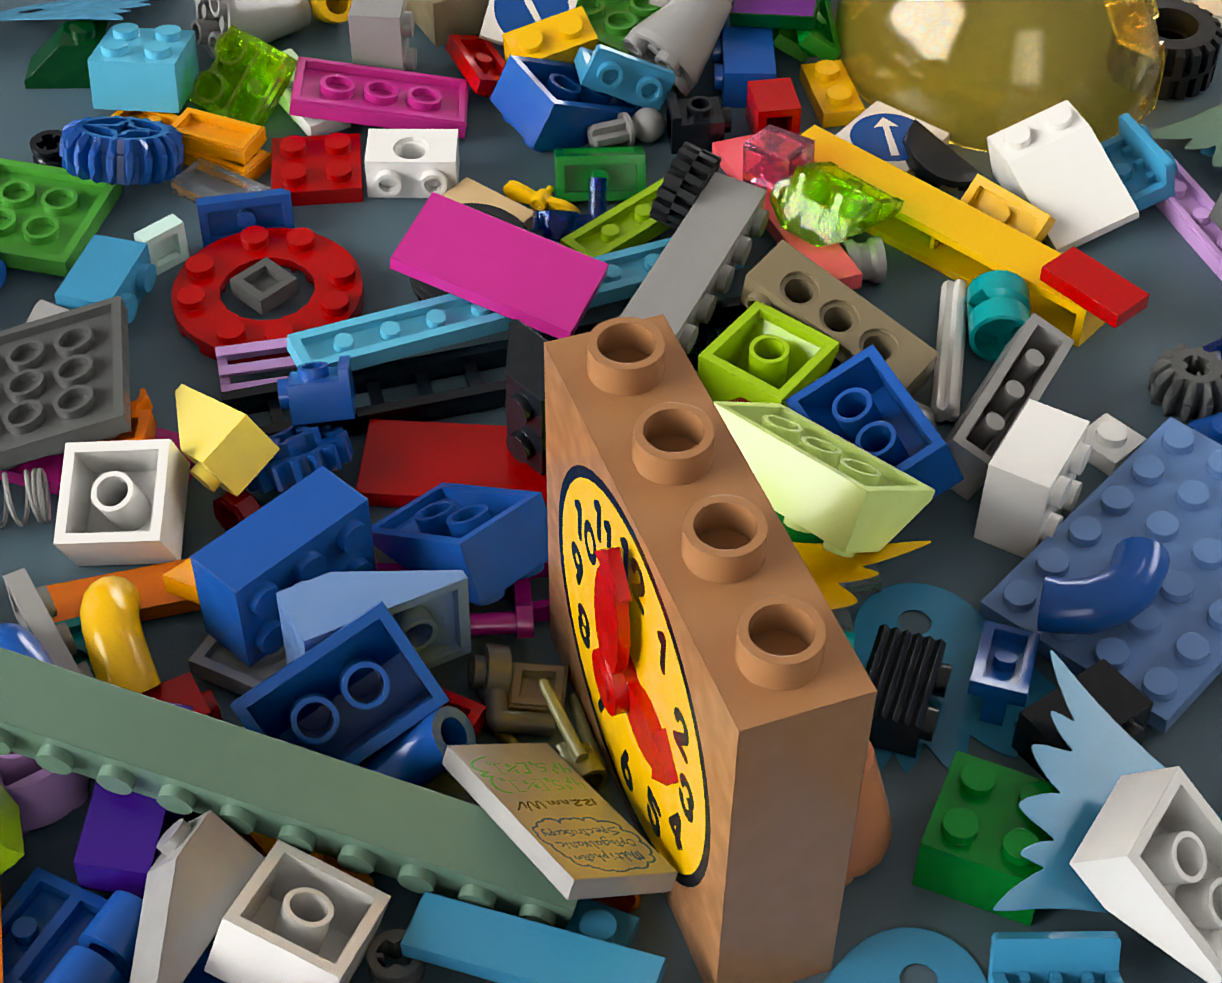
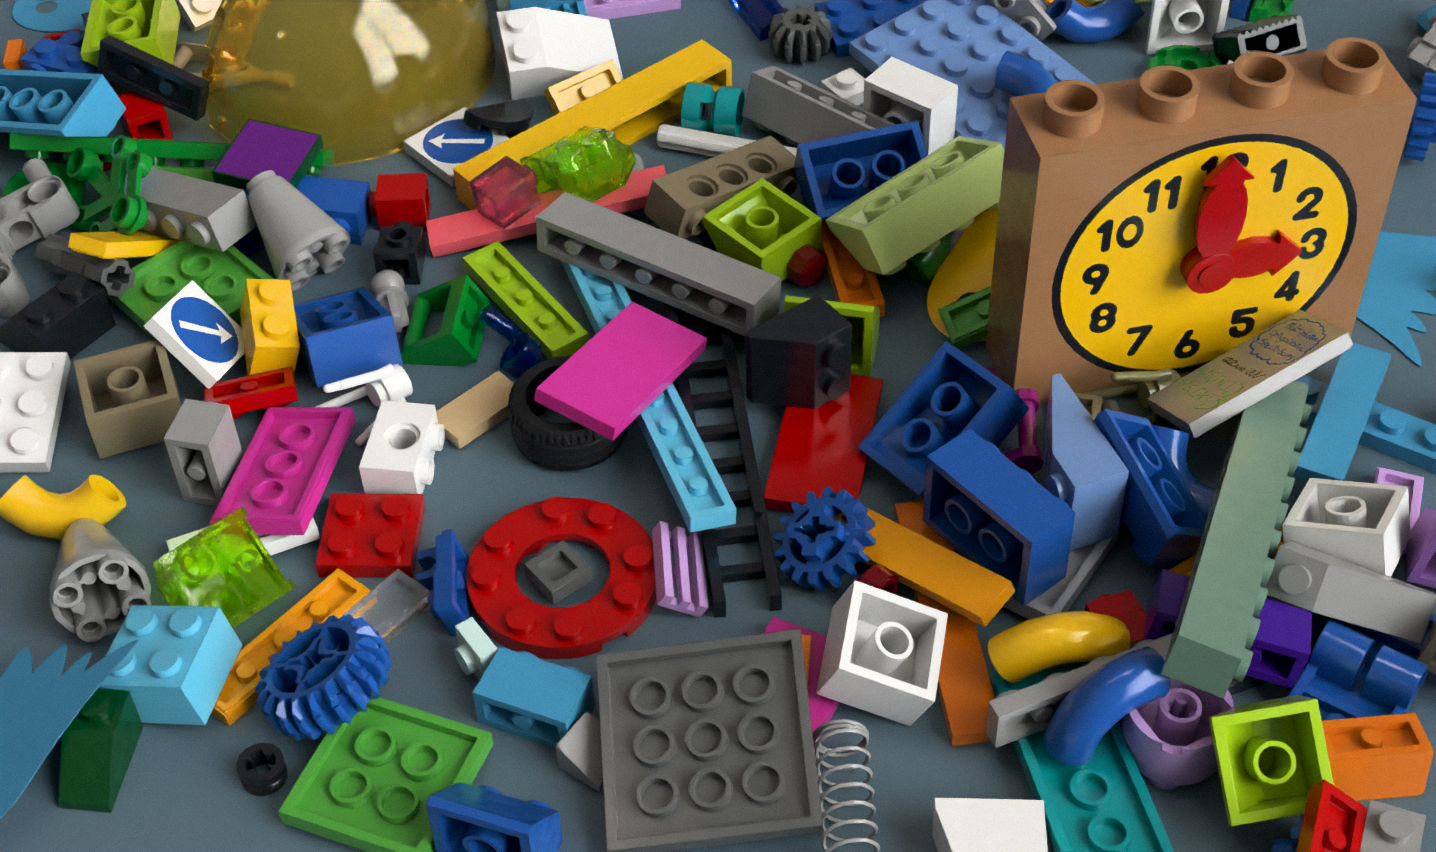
camera: 80 degrees left, 0 degrees up
(219, 135) = (307, 599): light orange tile -> none
(220, 442) = (814, 575): light yellow slope -> none
(319, 392) = (766, 499): blue brick -> none
(497, 141) = (385, 384): none -> white plant
(537, 200) = (470, 371): yellow piece -> none
(624, 76) = (339, 283): dark azure bracket -> none
(683, 184) = (553, 232): black tyre -> none
(831, 92) = (368, 165): yellow plate -> none
(1094, 287) = (713, 46): red tile -> none

